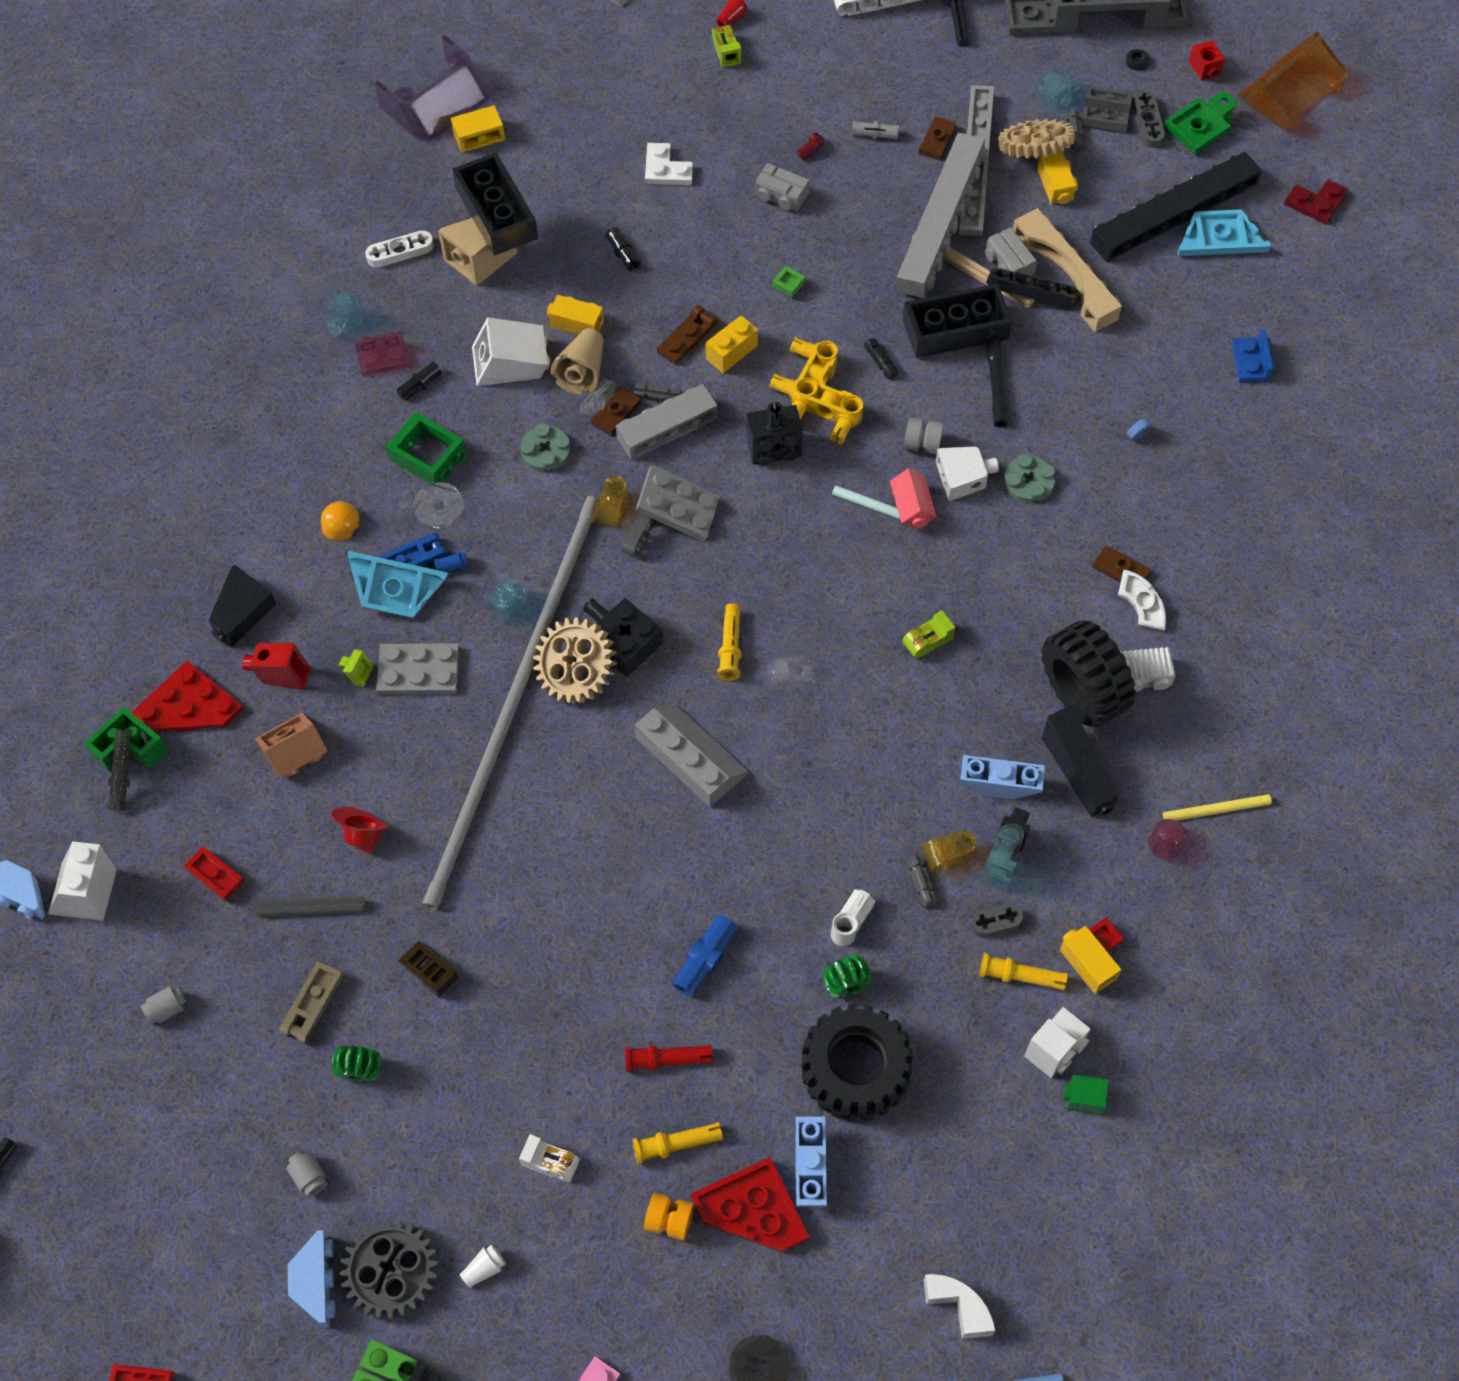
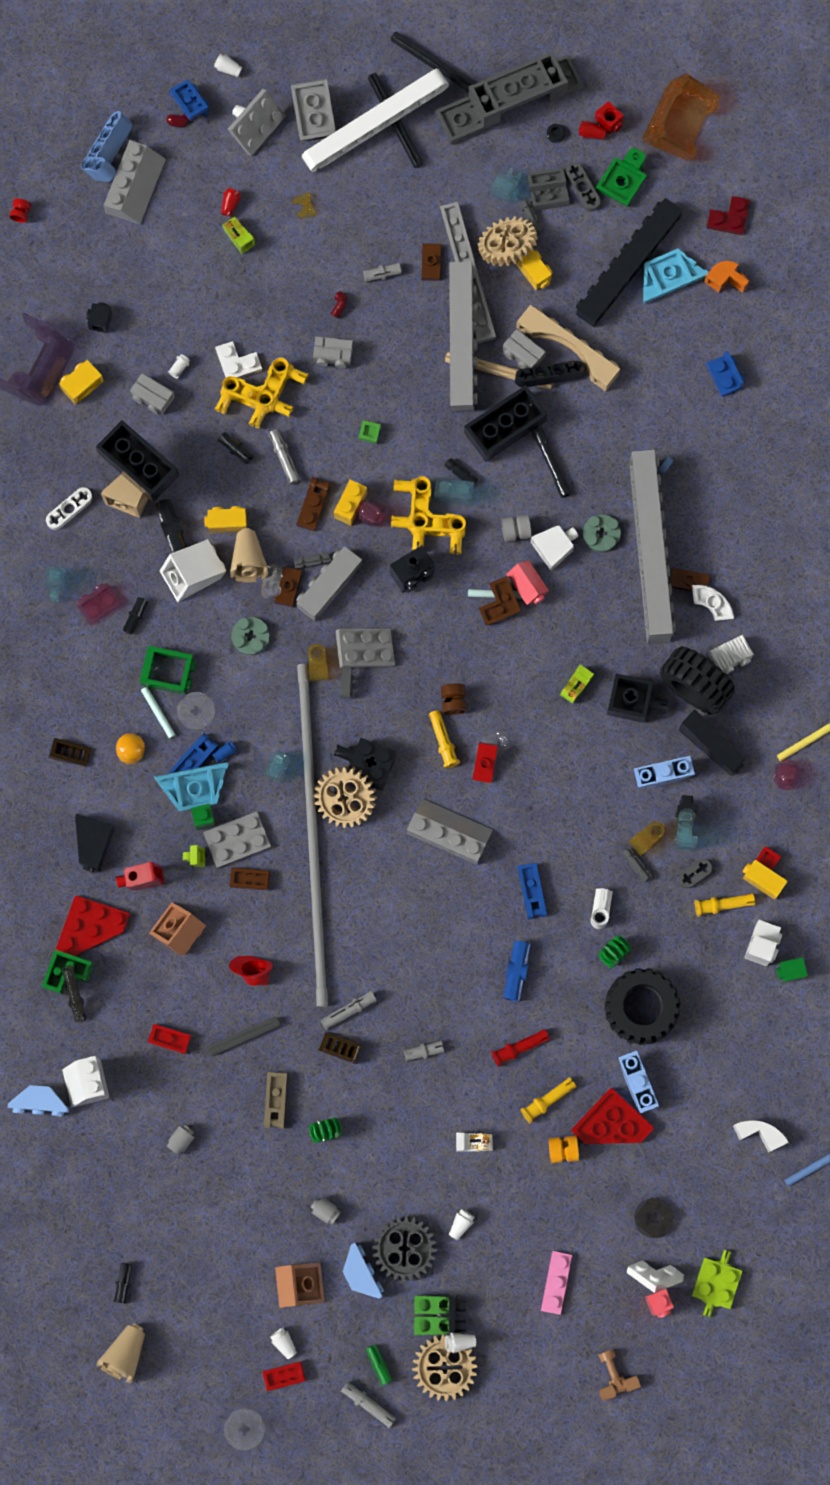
camera: 20 degrees left, 15 degrees up
(163, 1336) = (283, 1342): none -> white cone
(224, 1262) = (299, 1284): none -> nougat slope
(254, 484) = (59, 757): none -> dark brown slope
(387, 624) = (203, 816): none -> green brick
(393, 494) = (157, 711): none -> light aqua bar
(411, 718) = (250, 879): none -> reddish brown plate
(459, 924) = (348, 1010): none -> light grey pin
(508, 298) = (171, 525): none -> black piece
(530, 74) = (99, 317): none -> black brick
(535, 1013) = (423, 1051): none -> light grey pin
(552, 164) = (152, 394): none -> light grey brick
(596, 149) = (181, 362): none -> white pin
(675, 267) = (281, 450): none -> light grey pin
(681, 207) = (271, 389): none -> yellow pin
(751, 363) = (370, 512): none -> clear pink head
(763, 598) = (453, 699): none -> reddish brown wheel
(767, 861) = (531, 890): none -> blue plate
(771, 685) = (485, 762): none -> red plate
(816, 48) = (307, 210): none -> clear yellow piece
(863, 372) = (454, 491): none -> clear light blue brick
(873, 515) = (503, 606): none -> reddish brown plate
(995, 674) = (641, 698): none -> black brick
(1087, 510) = (651, 548): none -> light grey brick
(1180, 67) = (591, 131): none -> red cone
(1290, 252) = (726, 272): none -> orange brick

